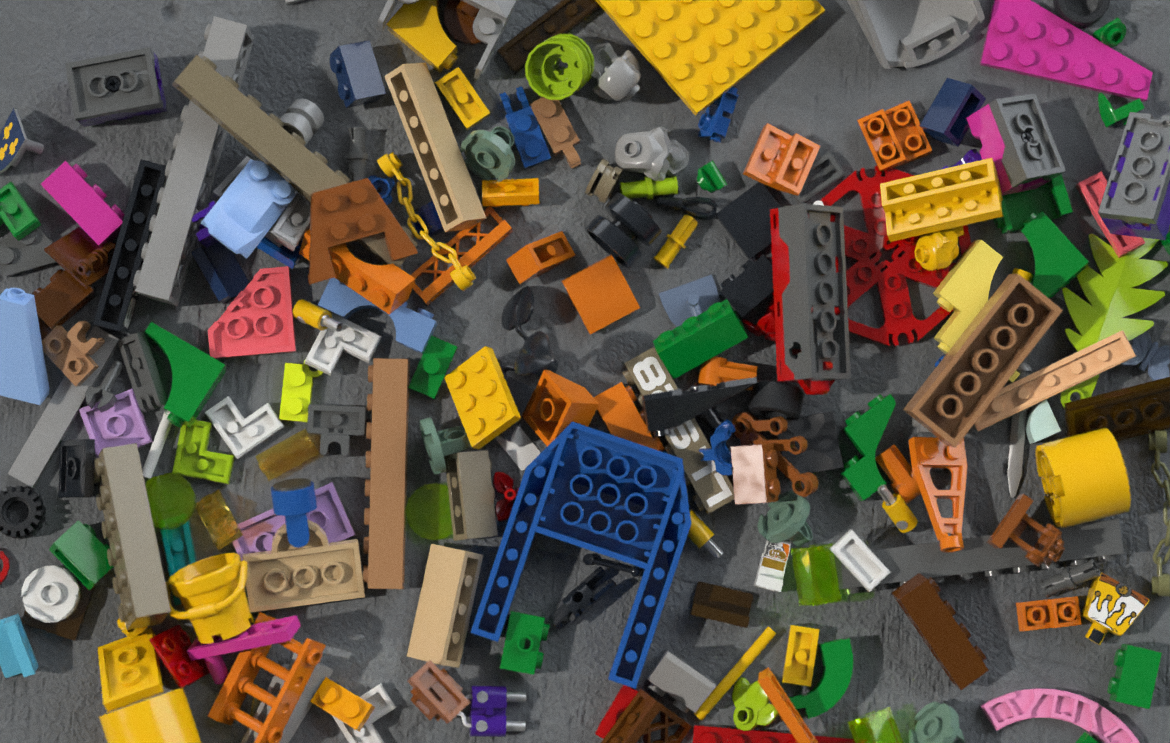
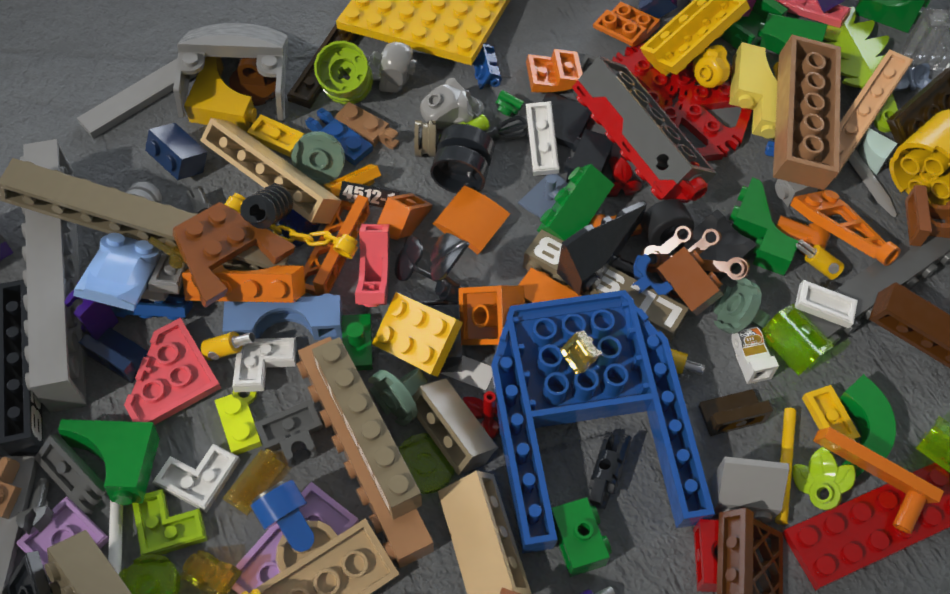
camera: 30 degrees left, 25 degrees down
(303, 215) = (175, 256): none -> clear yellow hand
(394, 466) = (367, 428): none -> dark tan brick
(409, 203) = (267, 206): none -> black piece
(480, 306) = (374, 265): none -> coral arch
(517, 219) = (376, 196): none -> black sticker
(588, 559) = (591, 433): black hinge -> none
(603, 500) = (580, 352): none -> clear yellow tile
(676, 241) = (508, 159): yellow axle -> none
(720, 237) = (542, 138): none -> white tile

